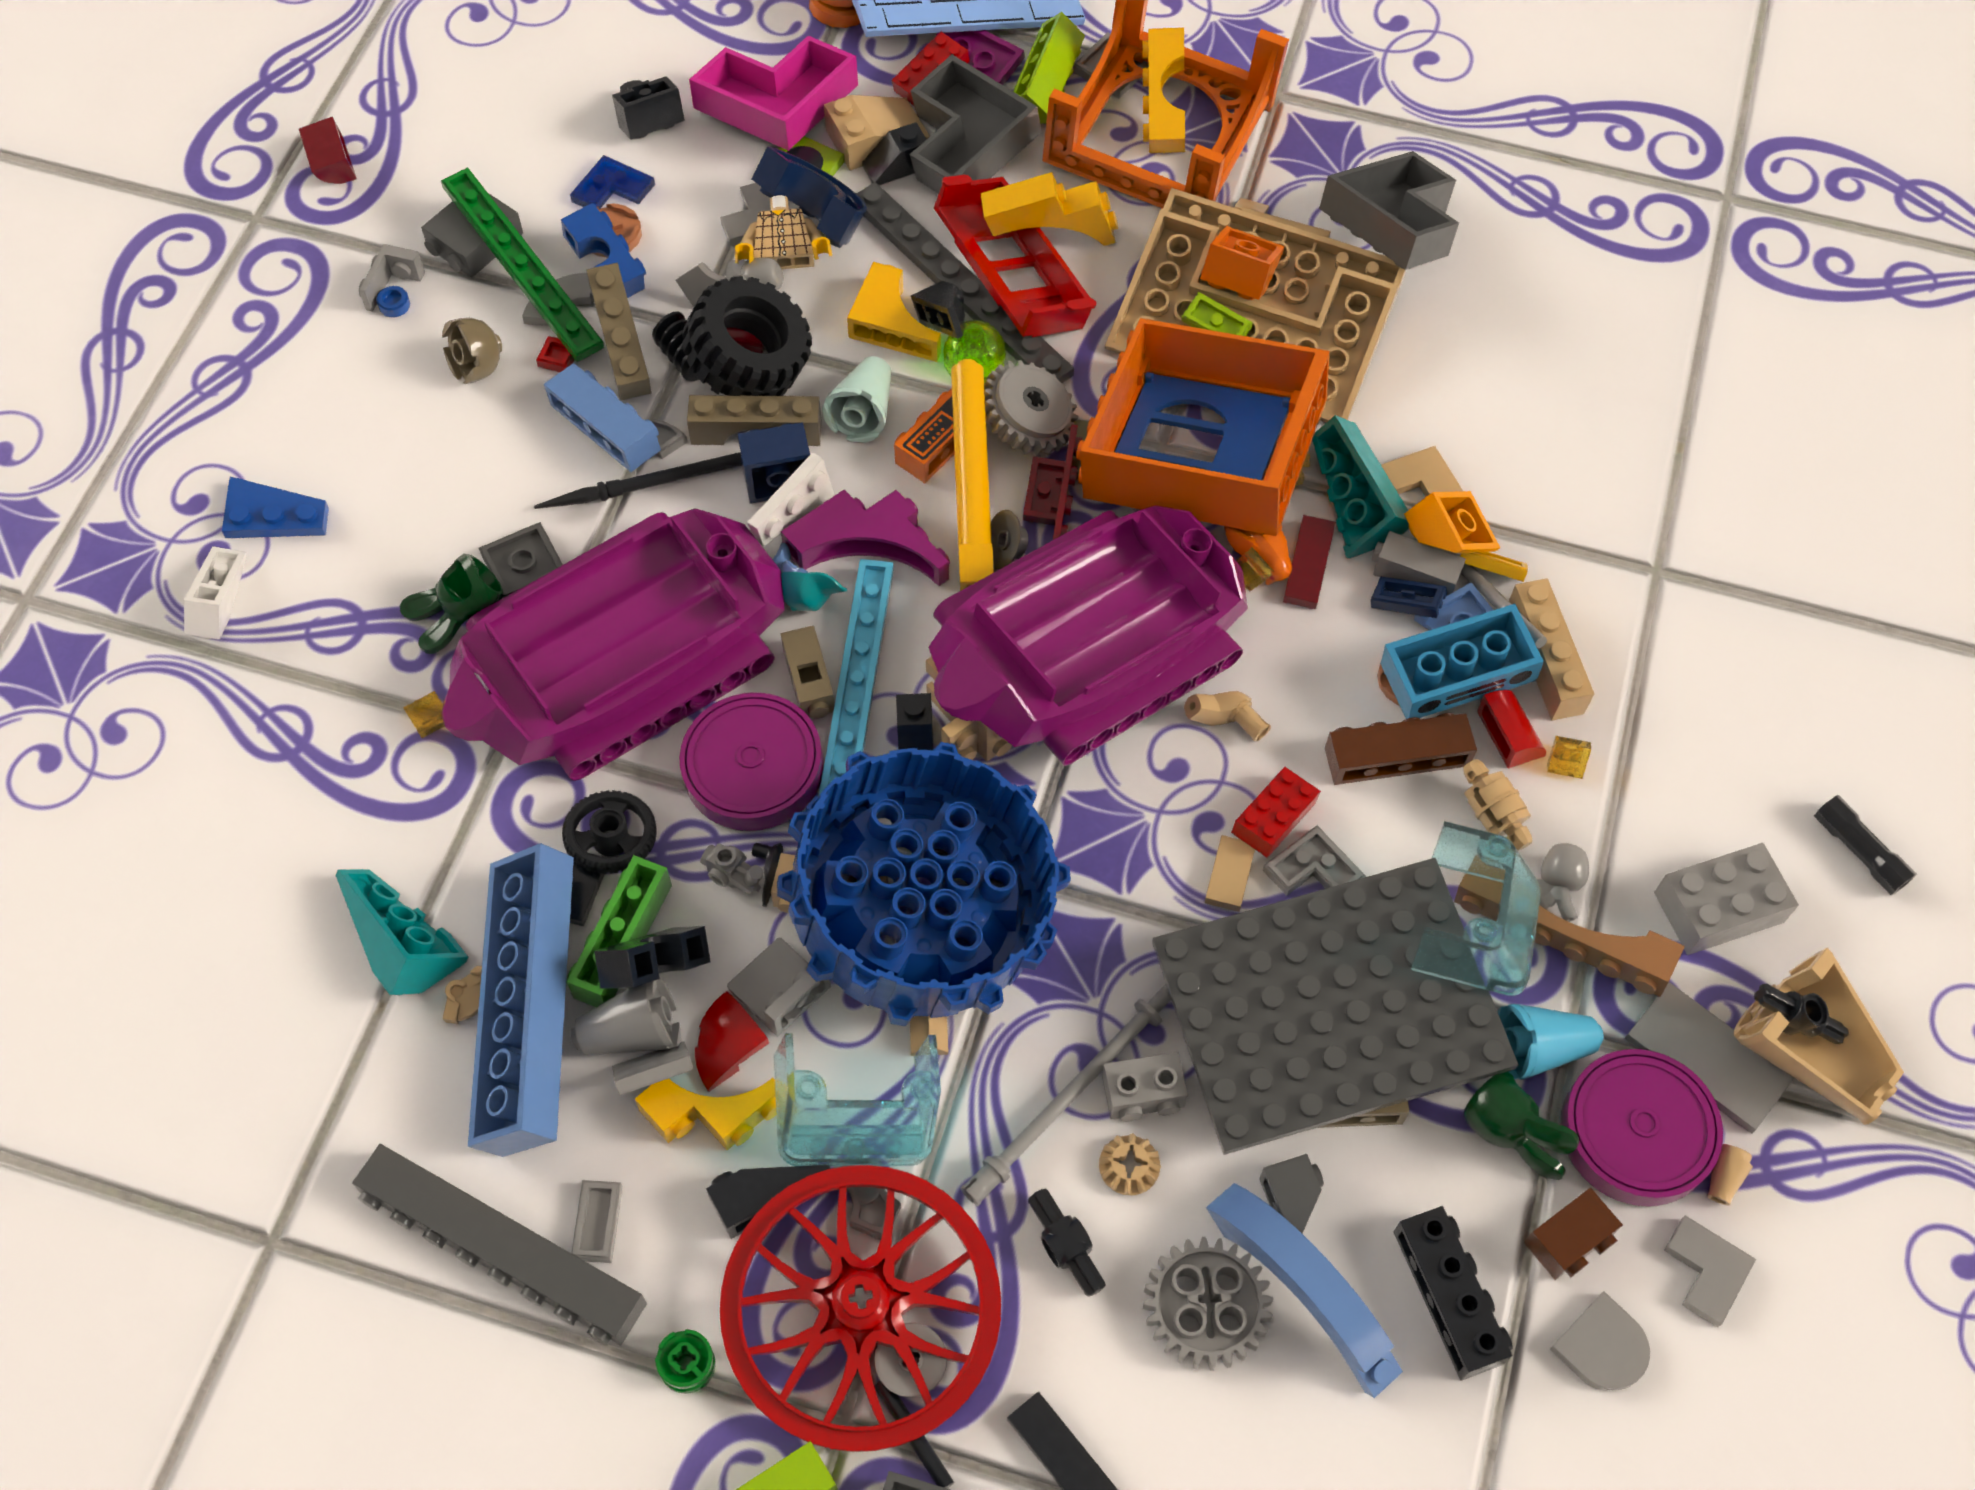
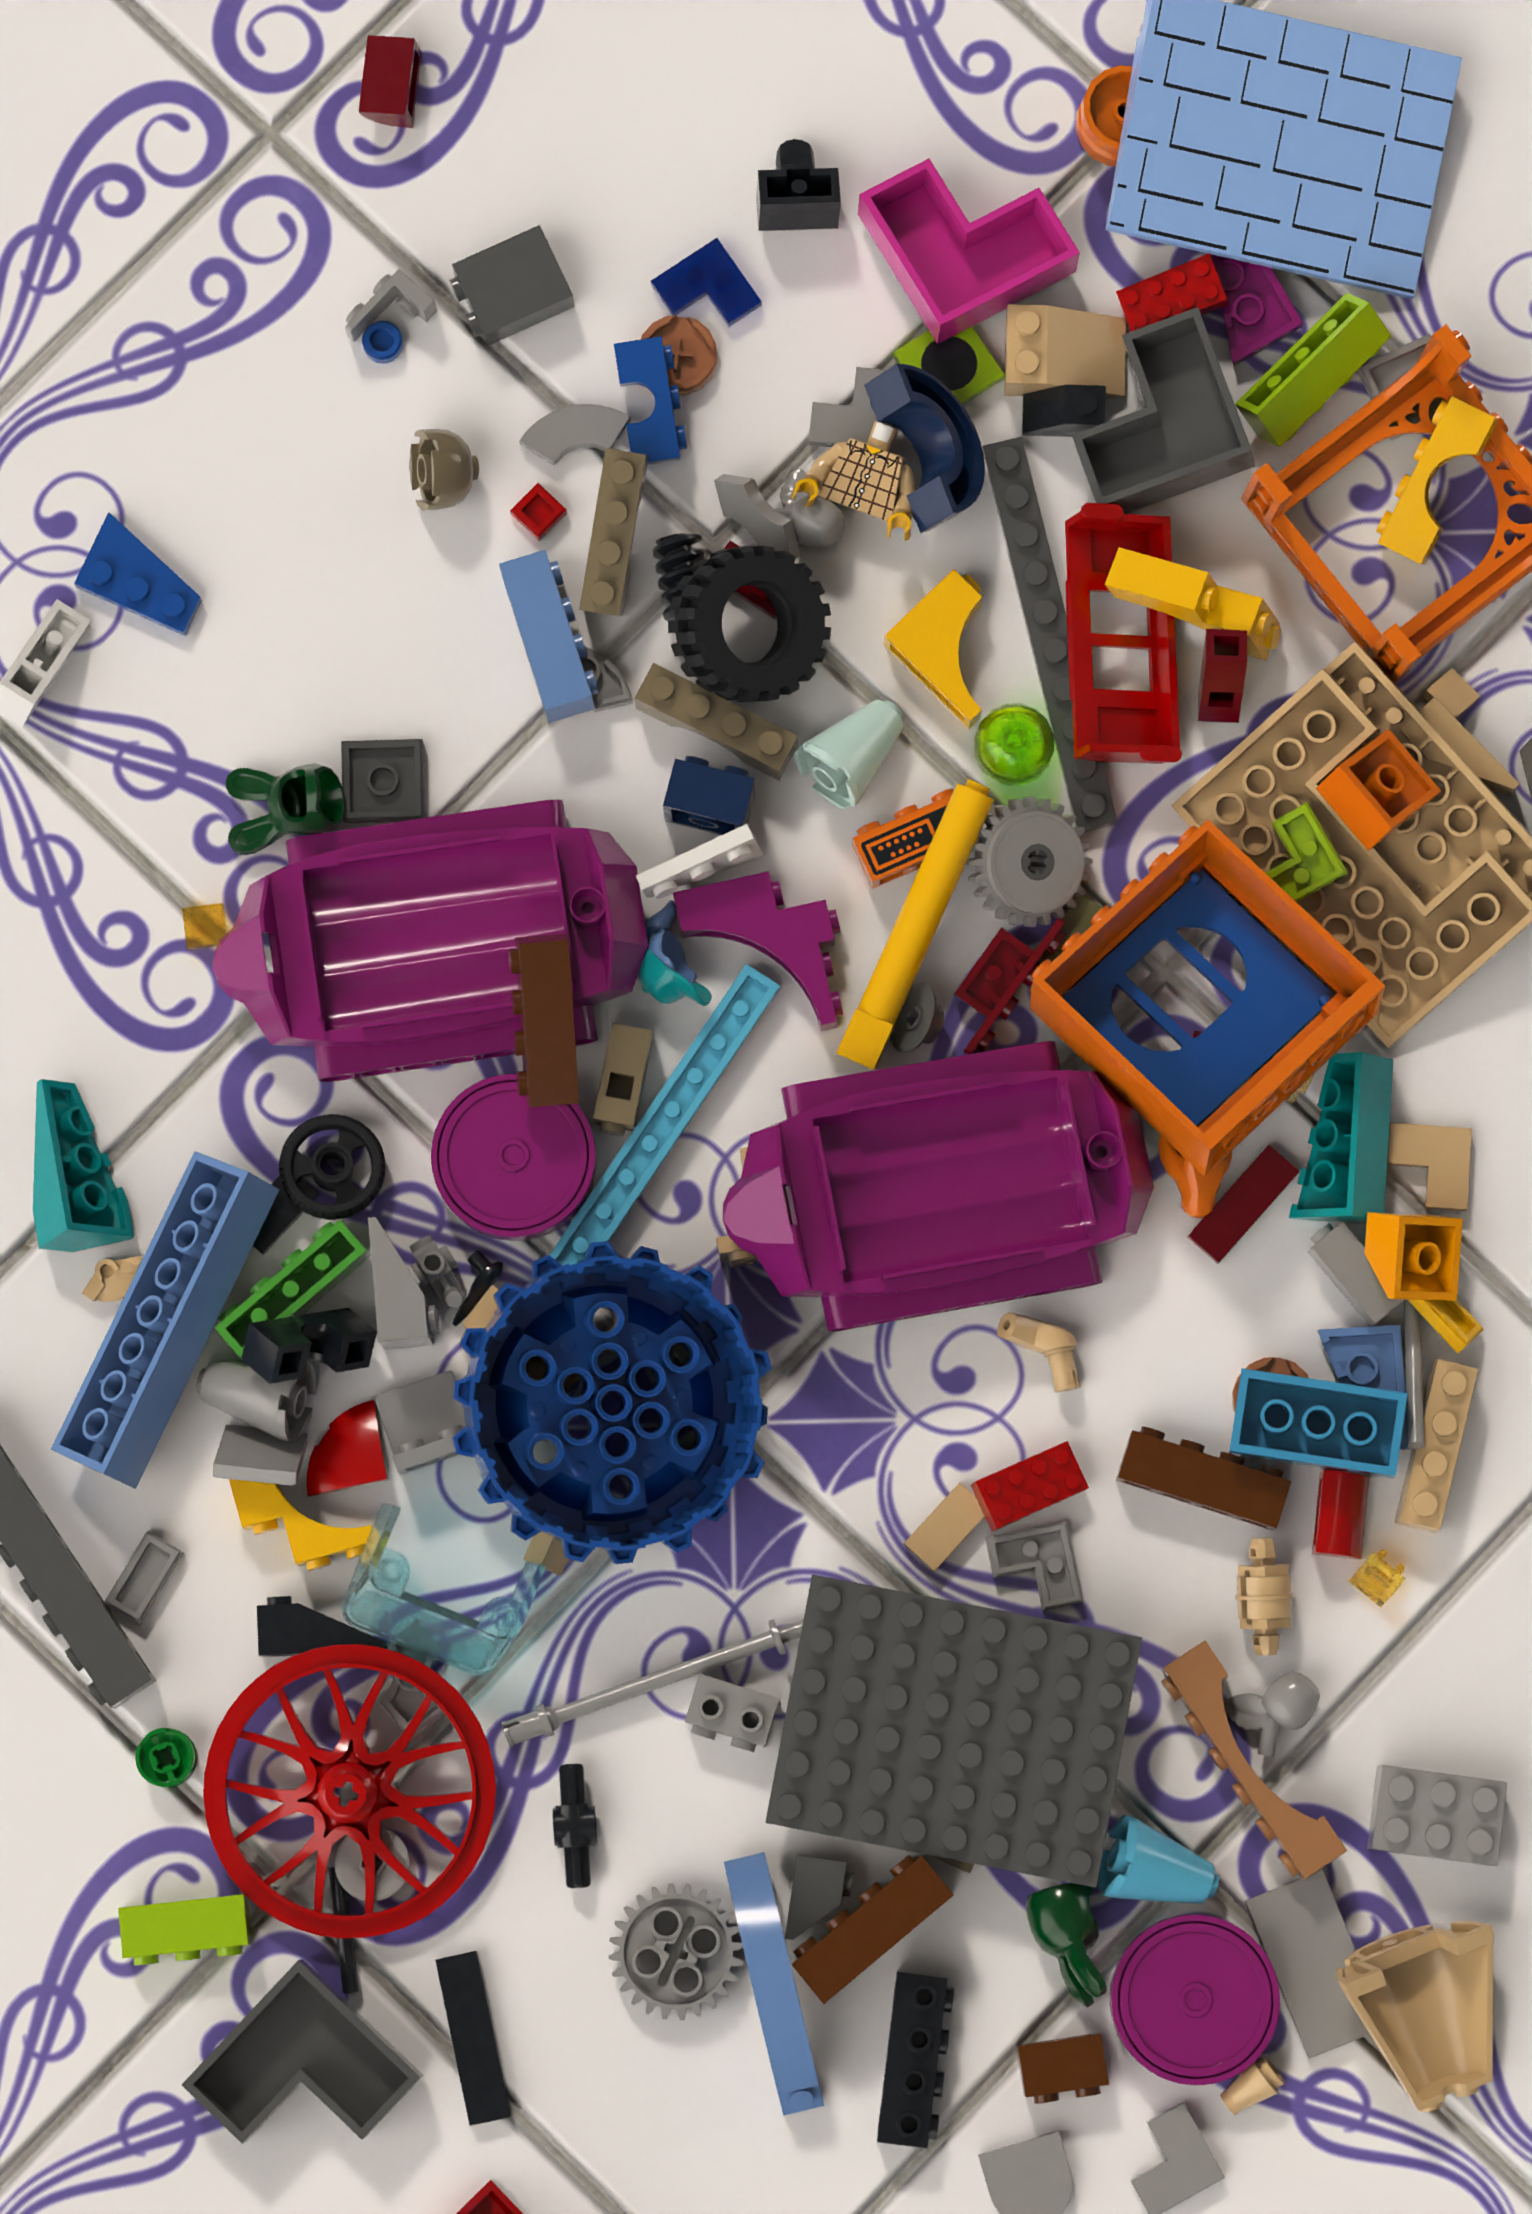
camera: 30 degrees right, 20 degrees up
(522, 265) = (546, 374): green tile -> none
(618, 487) = (489, 726): black piece -> none
(710, 892) = (401, 1307): none -> light grey slope
(728, 635) = (545, 1020): none -> reddish brown brick
(914, 721) = (699, 1210): black slope -> none
(941, 308) = (1002, 677): black slope -> none
(1095, 244) = (1222, 675): none -> dark red brick
(1115, 1174) = (697, 1775): tan gear -> none
(1254, 568) = (1167, 1191): clear yellow tile -> none
(1361, 1190) = (872, 1928): none -> reddish brown brick
(1408, 600) = (1344, 1331): dark blue tile -> none
(1490, 952) = (1141, 1779): clear light blue windscreen -> none
(1805, 1013) = (1407, 1968): black axle -> none

